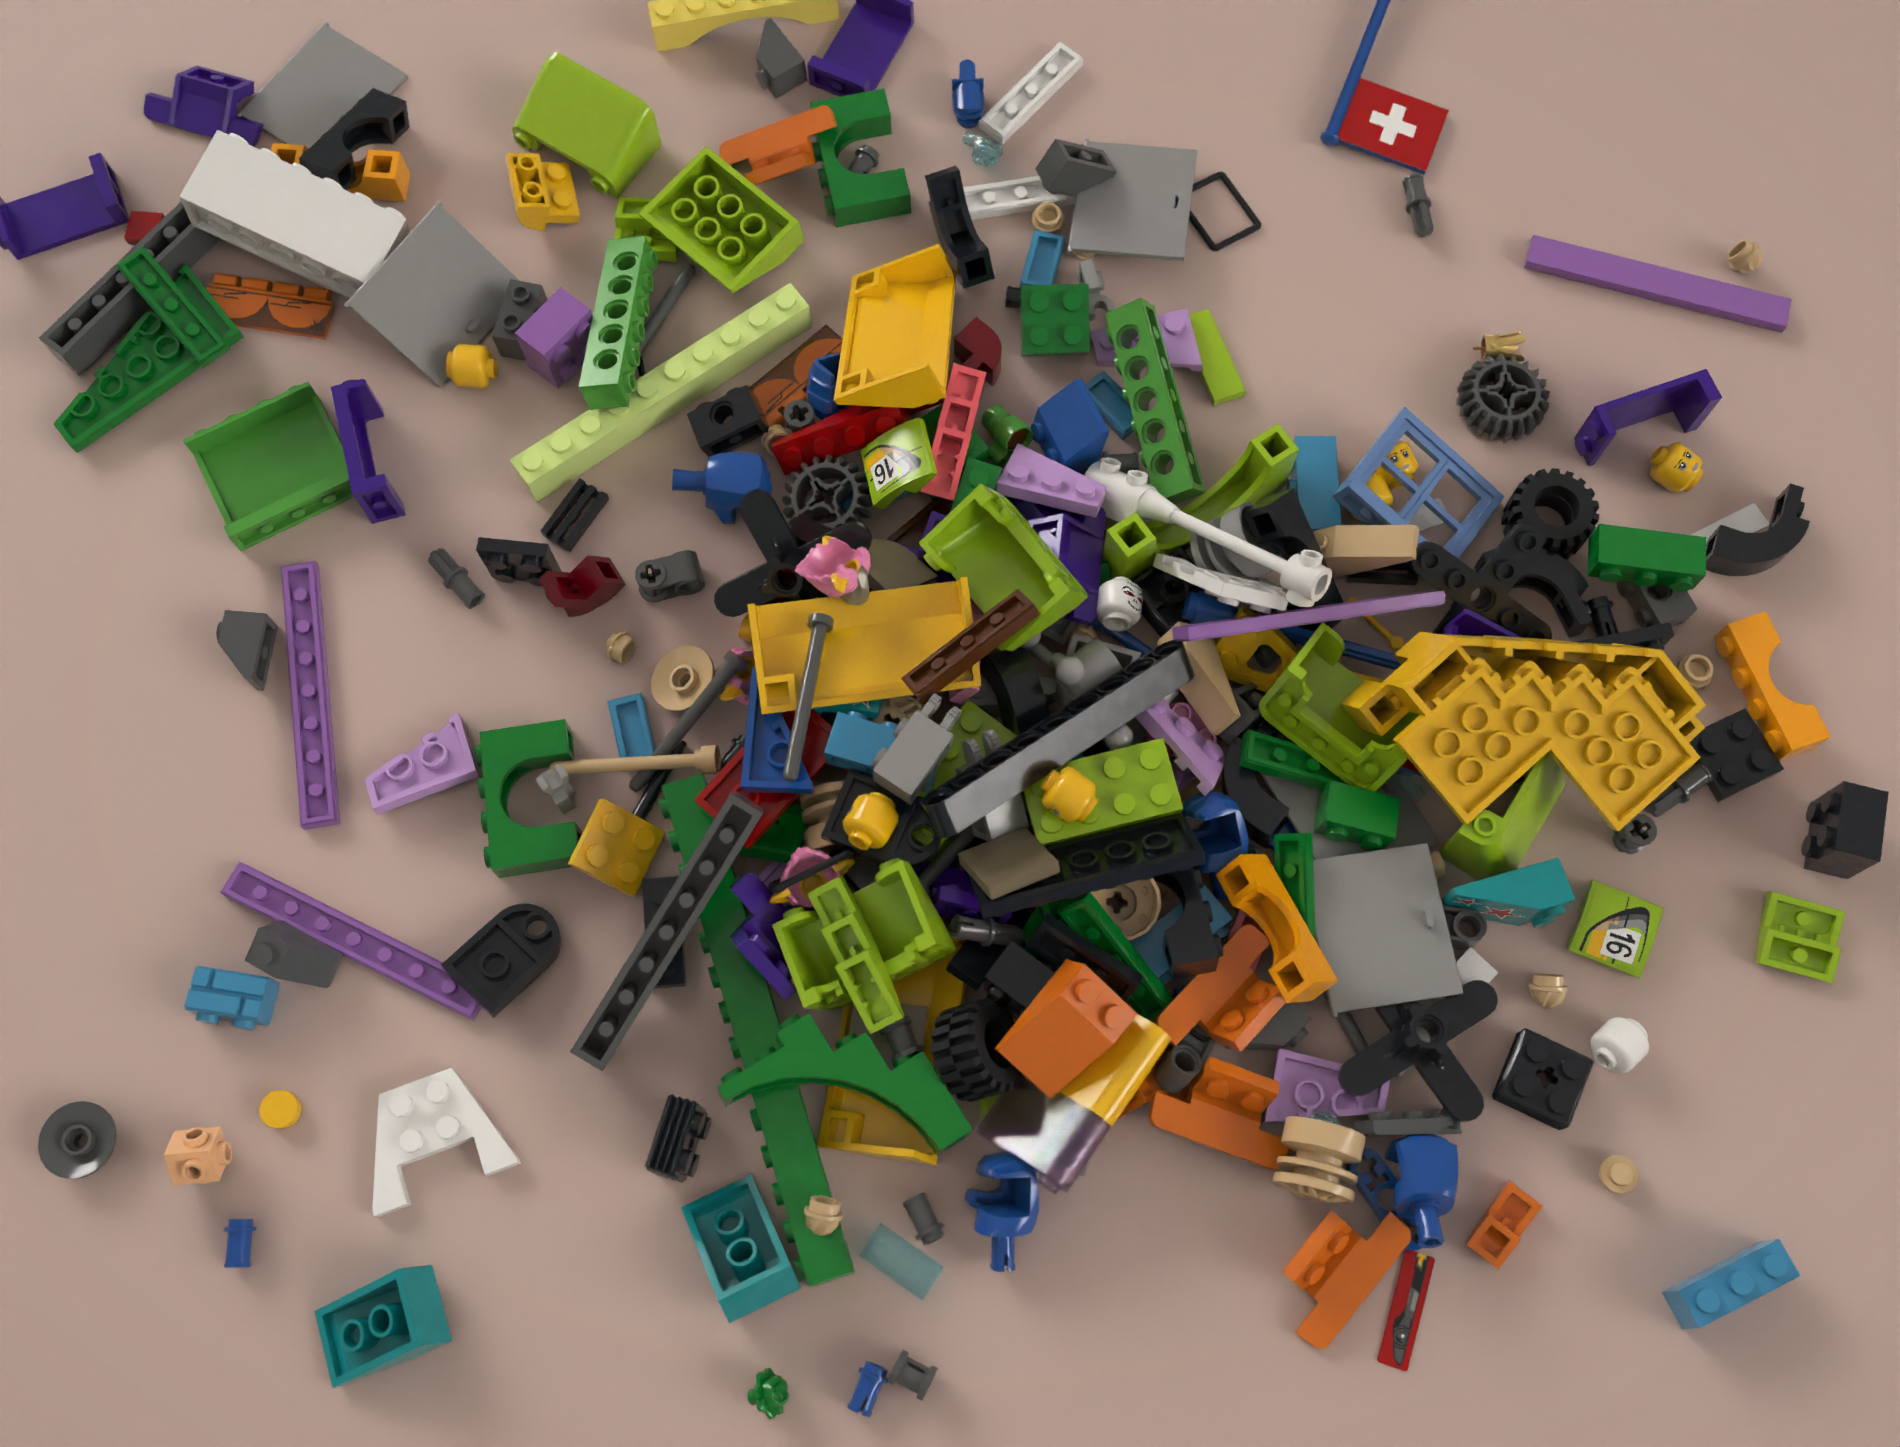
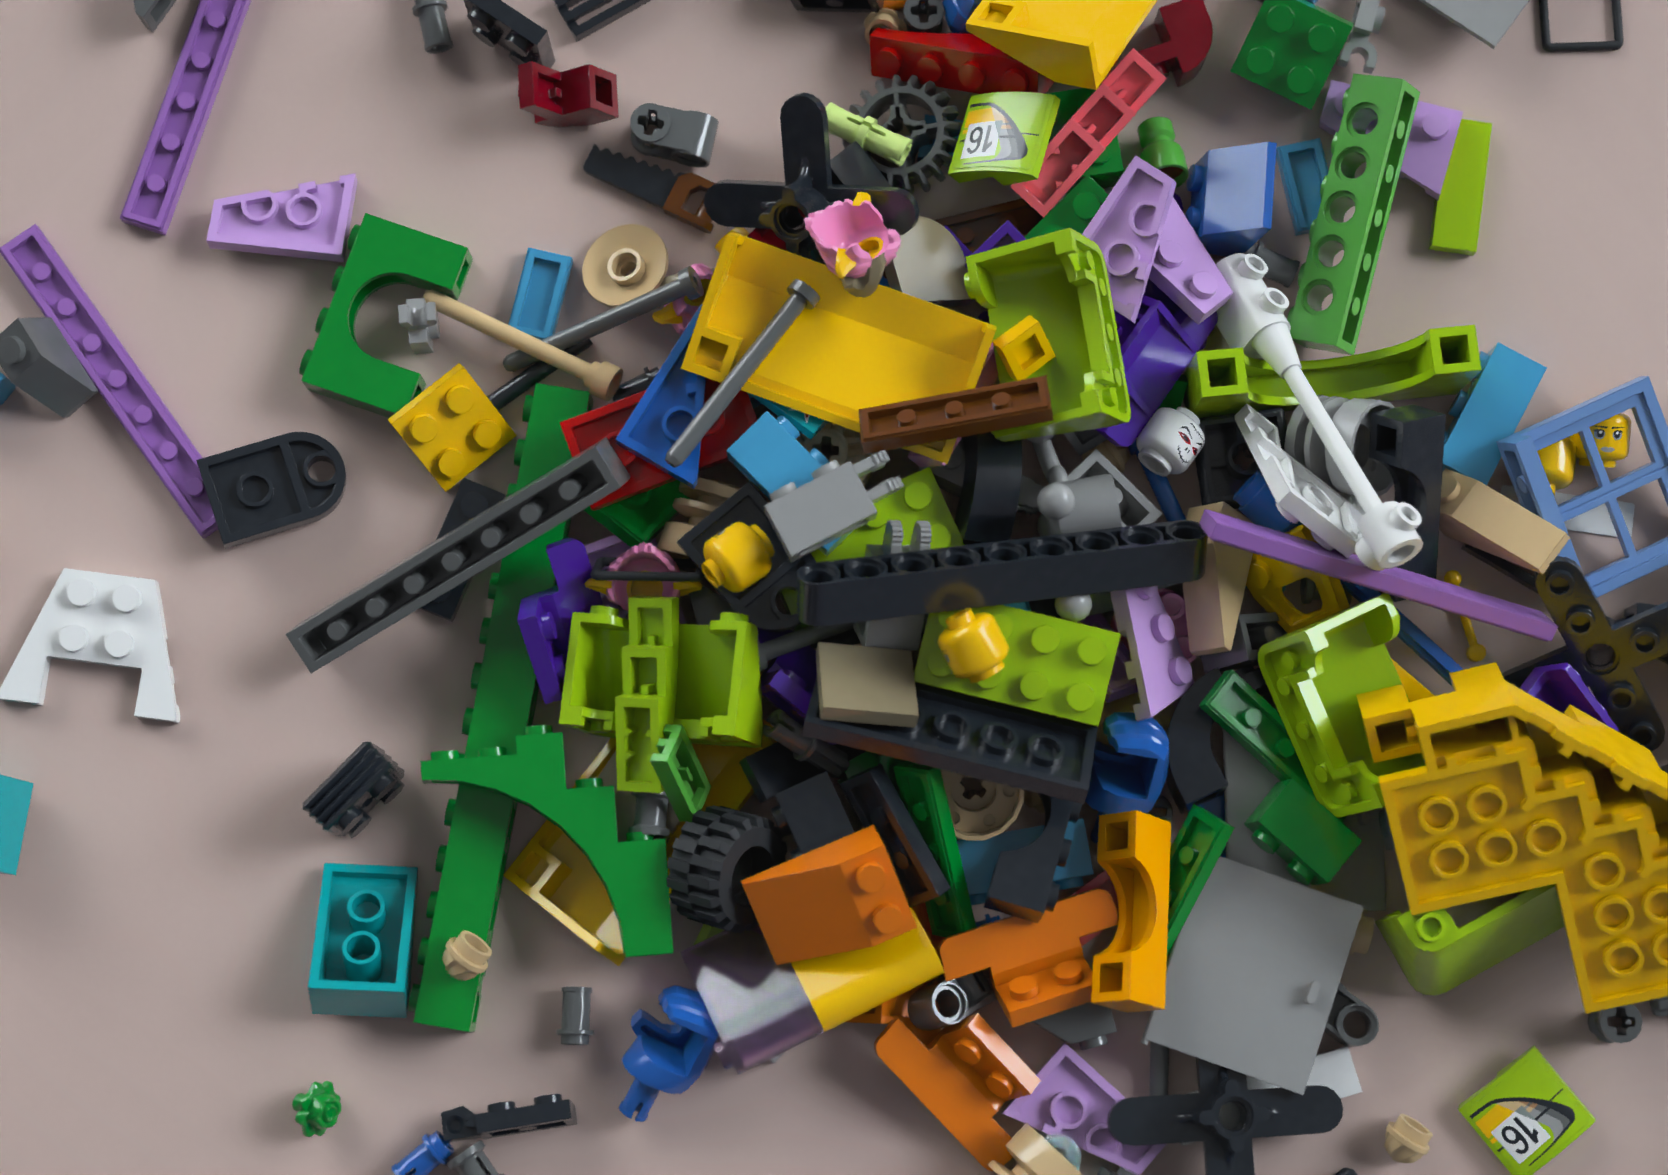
camera: 25 degrees right, 10 degrees up
(620, 647) = (575, 190): tan plate -> none
(674, 618) = (651, 185): none -> black piece
(725, 481) = (798, 55): blue piece -> none
(809, 506) = (868, 134): none -> yellowish green pin
(901, 1261) = (529, 1046): clear light blue tile -> none
(909, 997) = (680, 773): none -> bright green tile
(914, 1323) = (506, 1119): none -> black hinge
(991, 582) = (1024, 348): none -> yellow plate
(1018, 475) = (1130, 231): none -> lavender wing
(1518, 896) = (1434, 1023): teal slope -> none

